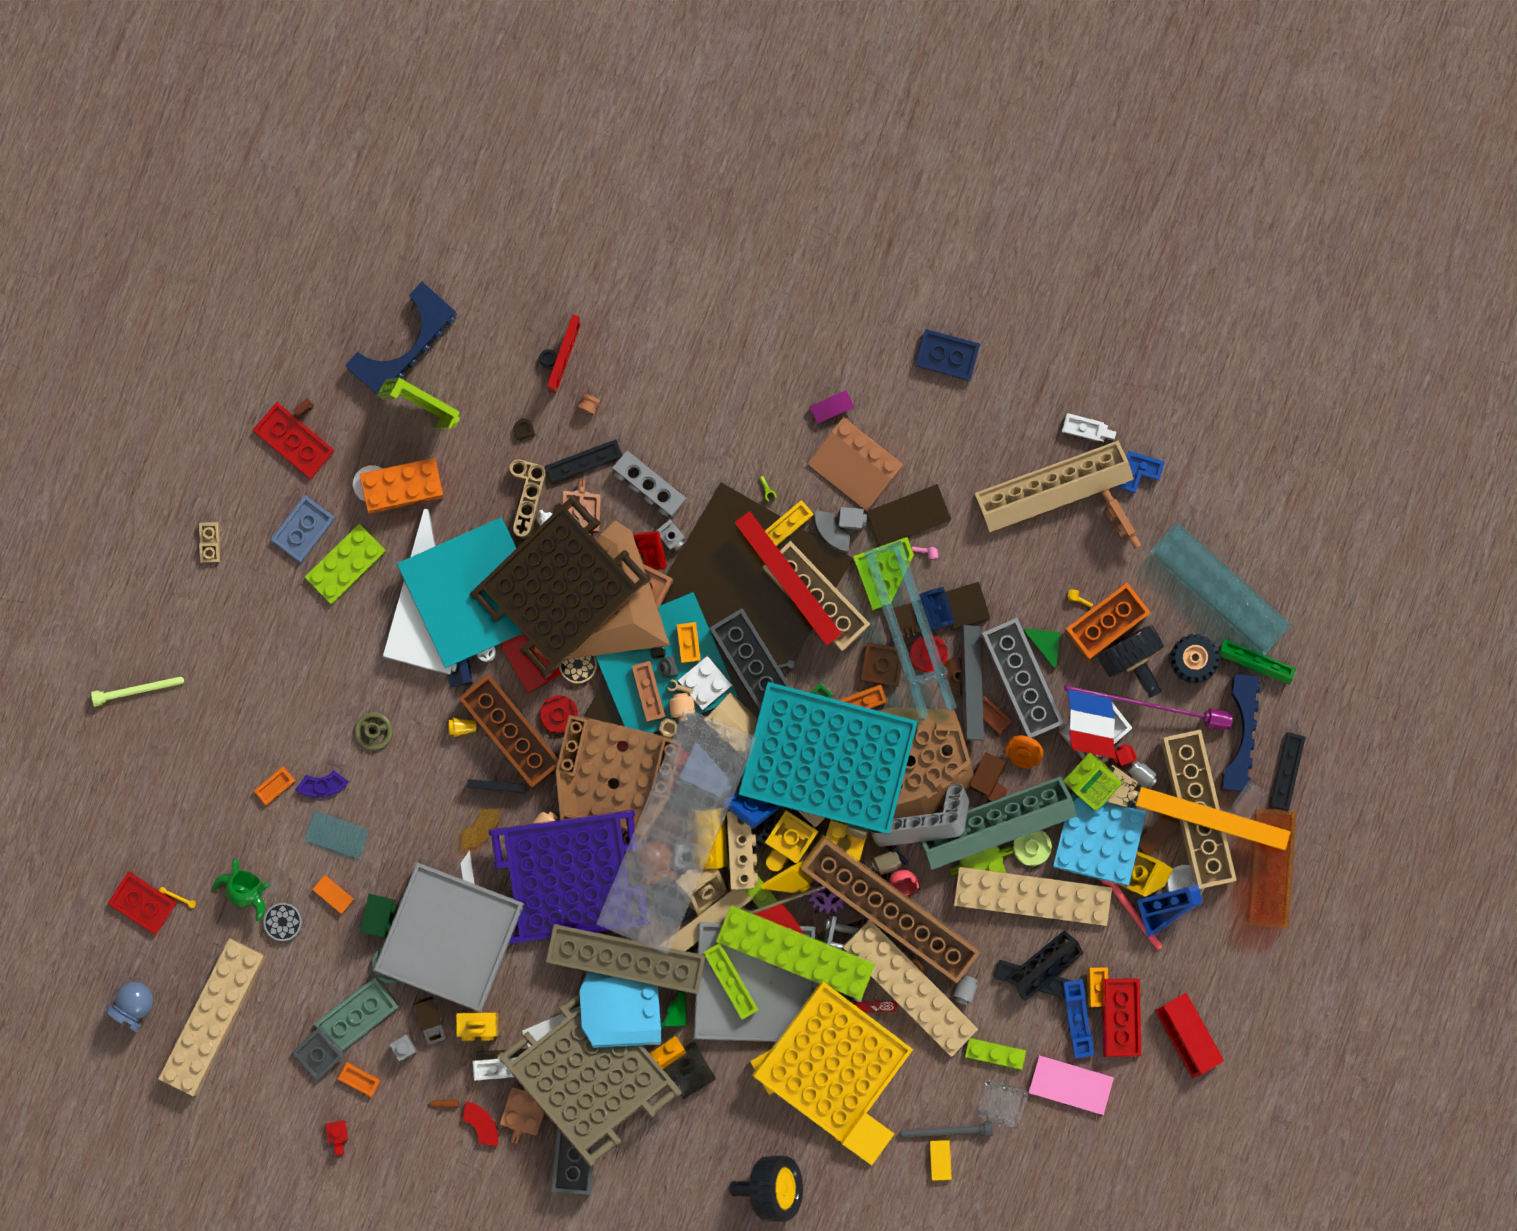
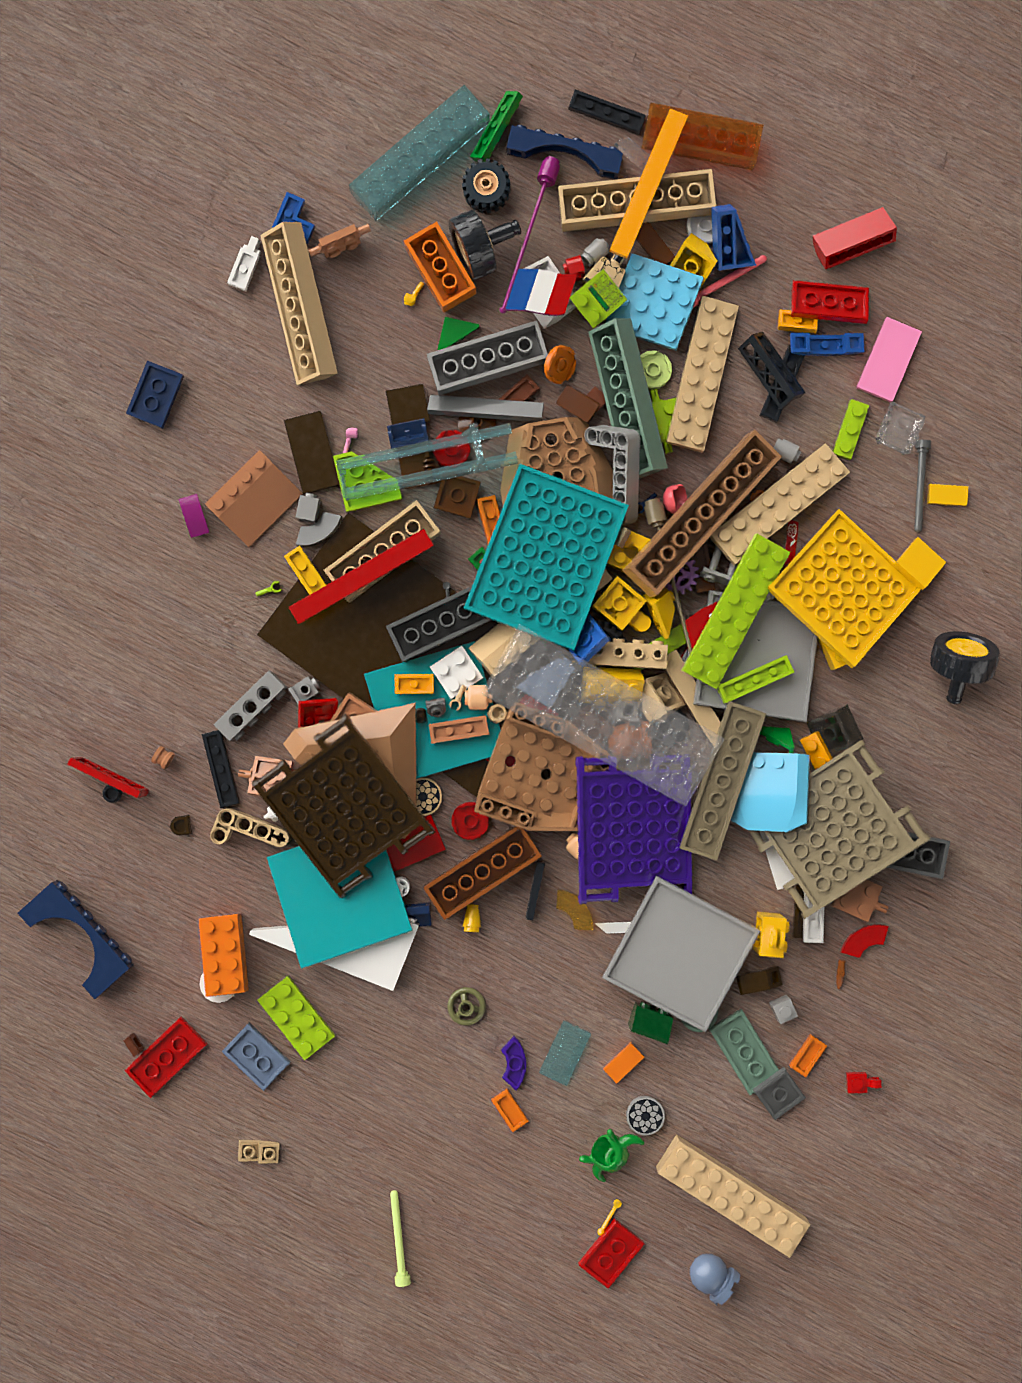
camera: 85 degrees left, 5 degrees up
(396, 386) = (136, 926): lime panel -> none

